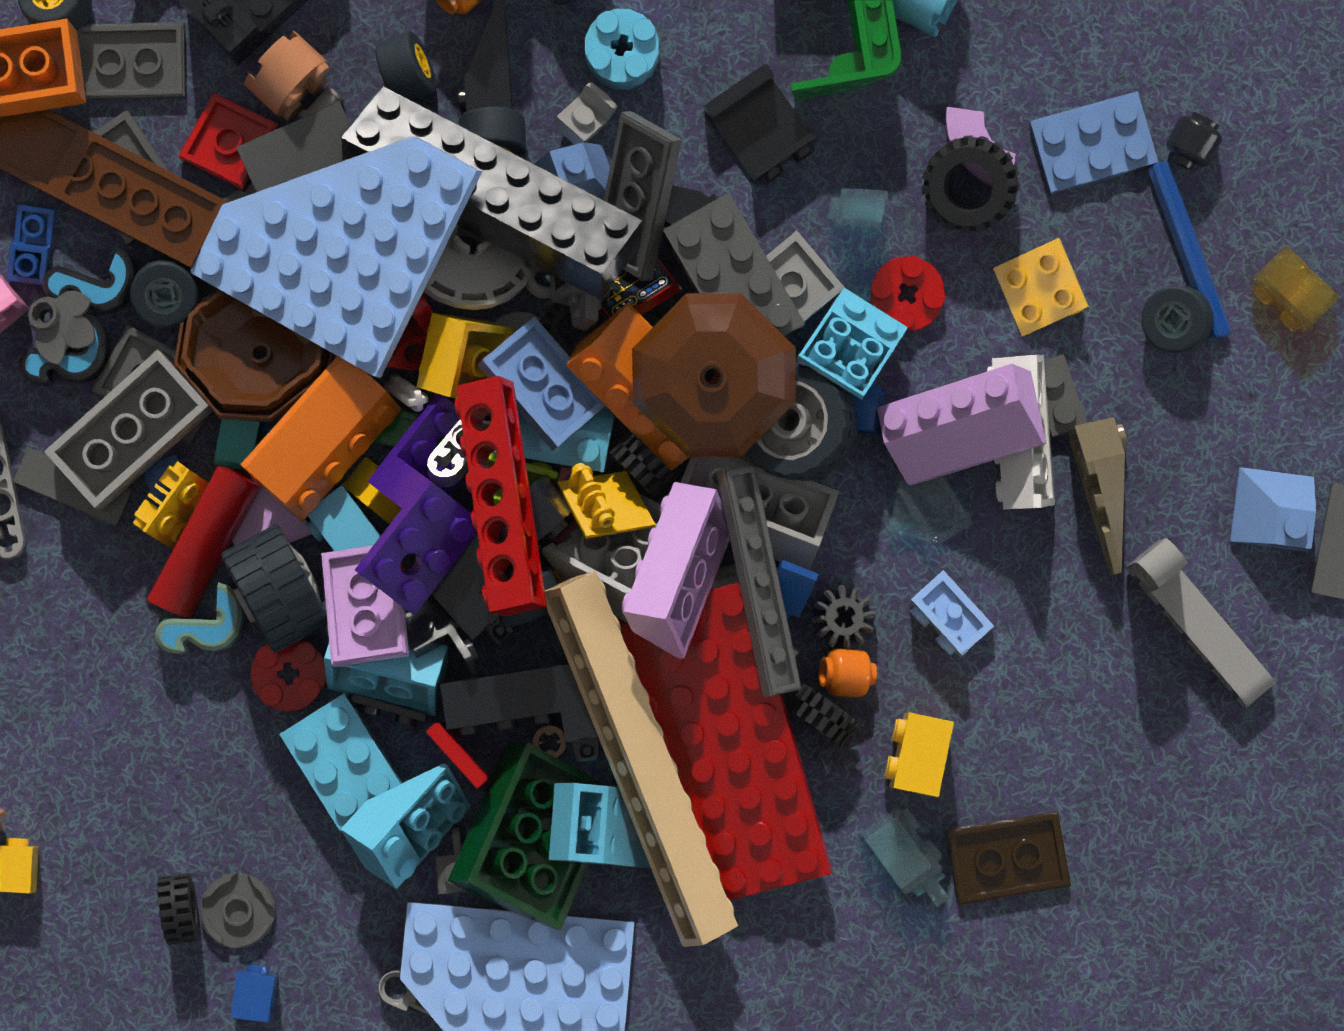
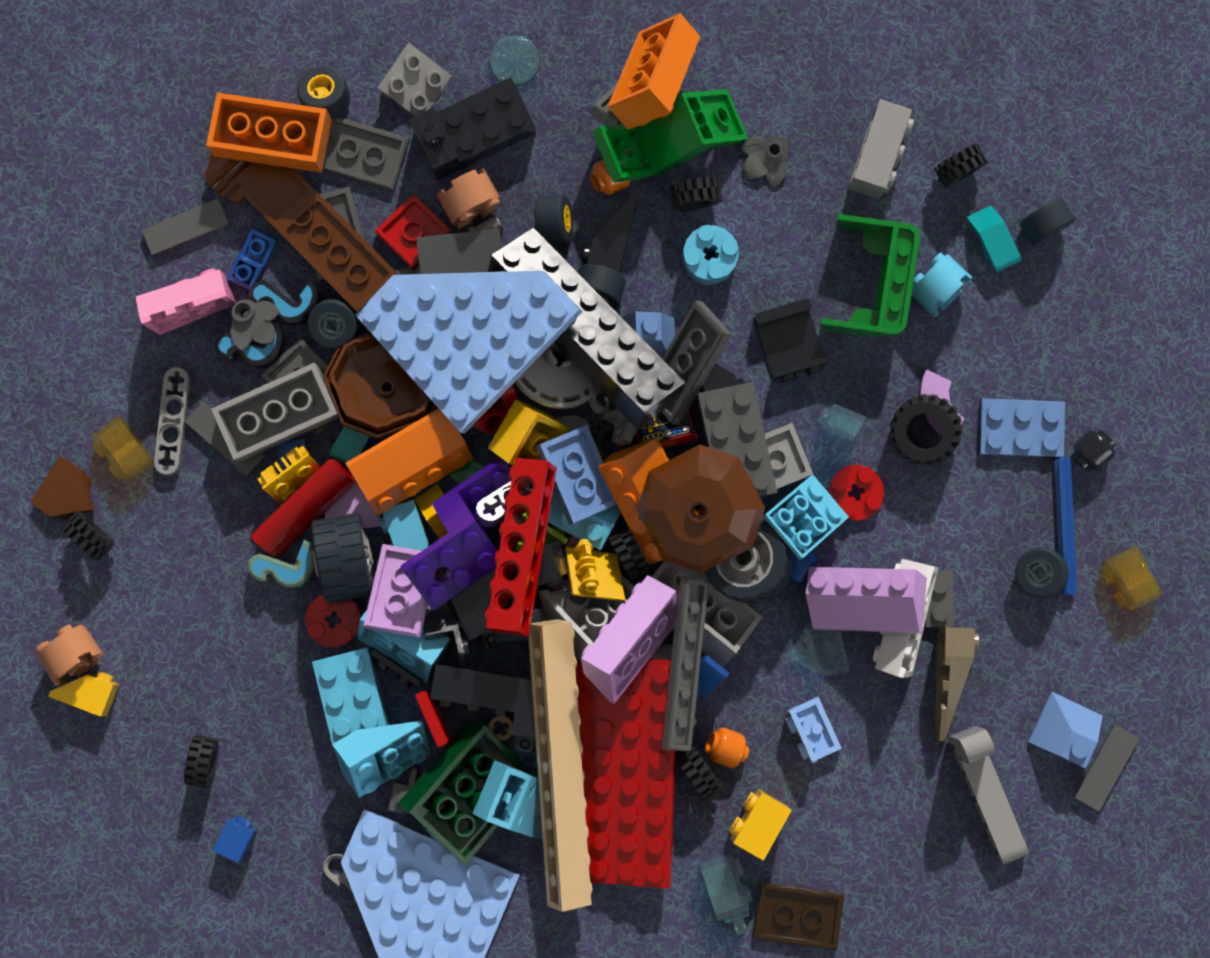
camera: 20 degrees right, 0 degrees up
(248, 912) = (251, 778): dark grey tile -> none
(406, 392) = (480, 448): white axle -> none
(585, 115) = (669, 293): light grey bracket -> none
(856, 620) = (745, 712): dark grey gear -> none
(1040, 287) = (952, 518): yellow hinge -> none

